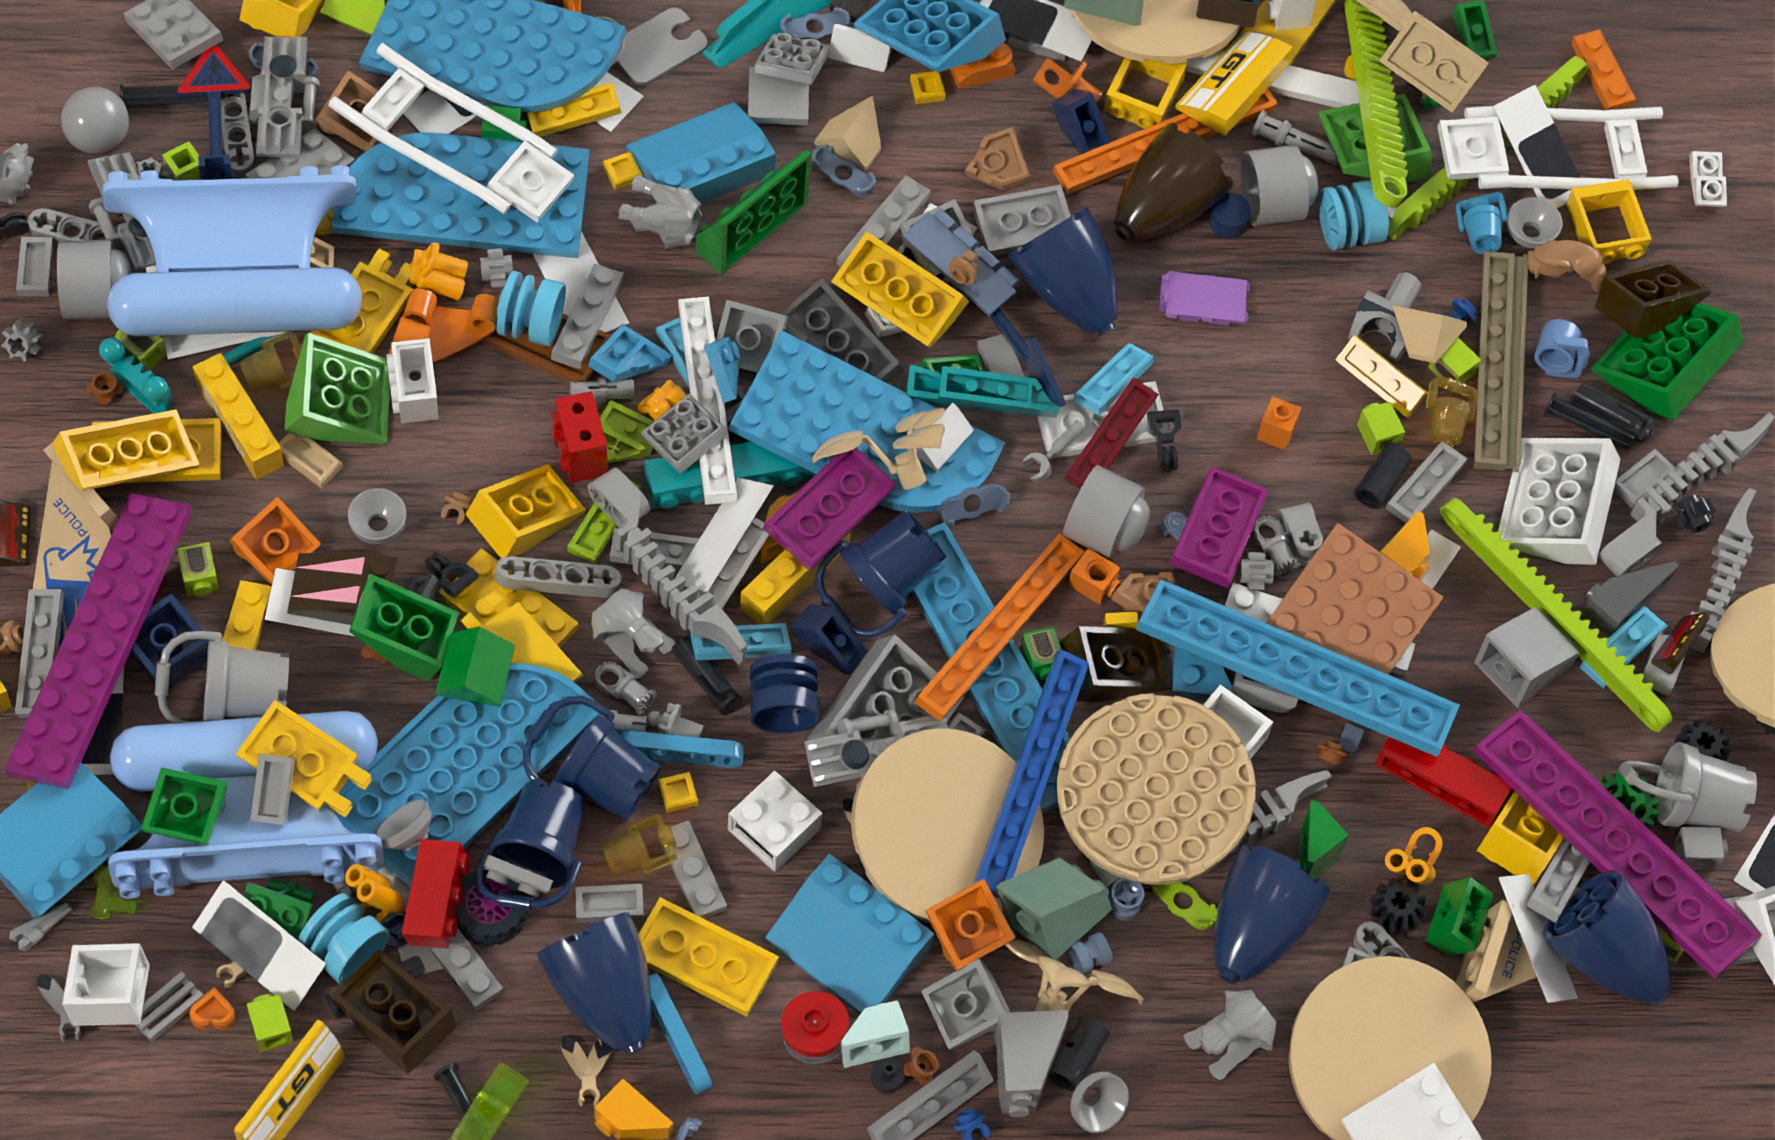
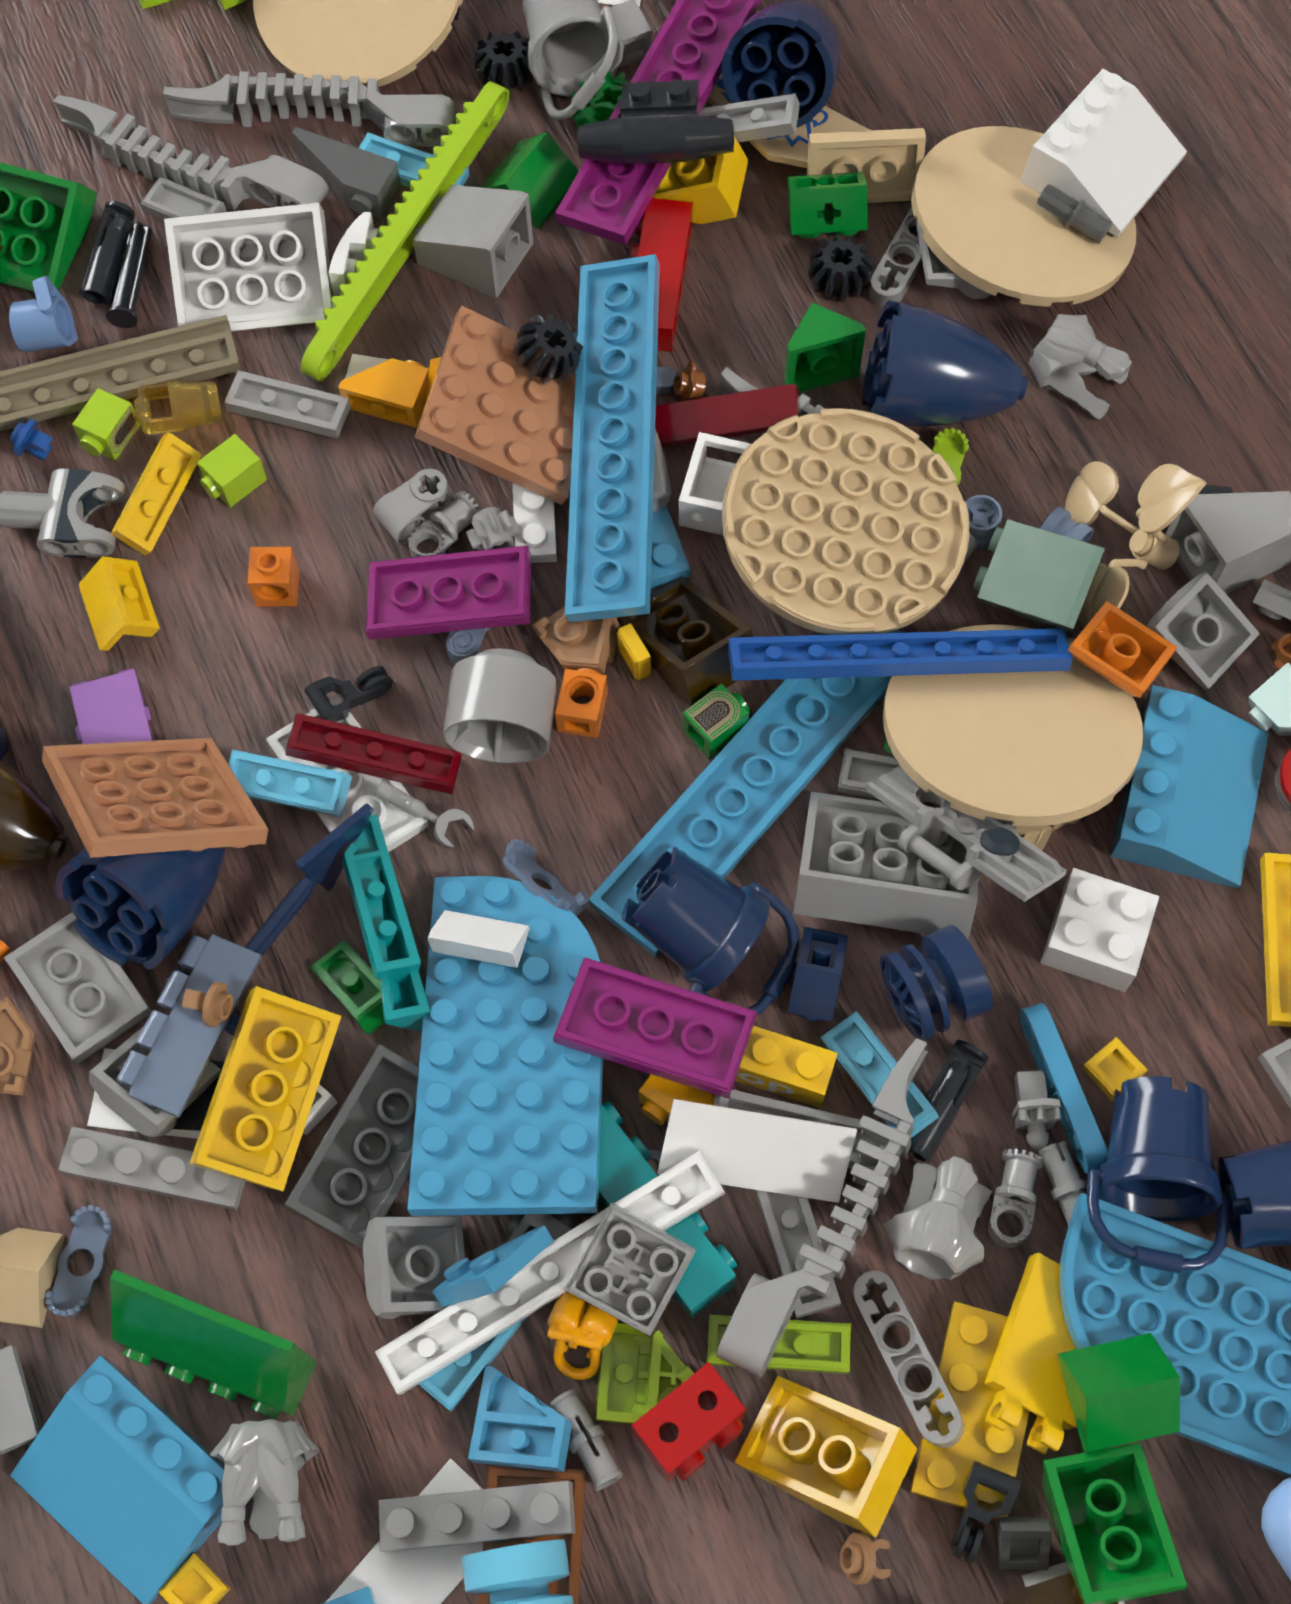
camera: 105 degrees left, 5 degrees up
(629, 850) = (1234, 1079): clear yellow piece -> none
(695, 874) = (1206, 1006): light grey plate -> none
(907, 466) = (551, 908): tan plant -> none
(999, 356) = (316, 929): light grey tile -> none
(999, 627) = (717, 769): orange plate -> none
(1105, 1107) = (1232, 465): light grey piece -> none
(1124, 281) = (153, 797): none -> nougat plate
(1289, 755) = (725, 414): none -> dark red tile
(1302, 329) = (117, 601): none -> yellow panel
(1368, 1086) = (1074, 213): none -> dark grey axle
(1382, 475) = (298, 447): black pin -> none
(1394, 644) = (547, 349): none -> black gear
(1415, 869) = (796, 258): light orange piece -> none
(1427, 333) = (82, 452): tan slope -> none
(1545, 960) = (828, 115): white sticker -> none
(1550, 568) = (351, 249): none -> white slope
(1560, 797) = (657, 126): none -> black plate
(1575, 721) = (539, 170): none -> green slope
(1680, 642) = (397, 92): slope -> none
(1695, 513) = (215, 138): black gear -> none

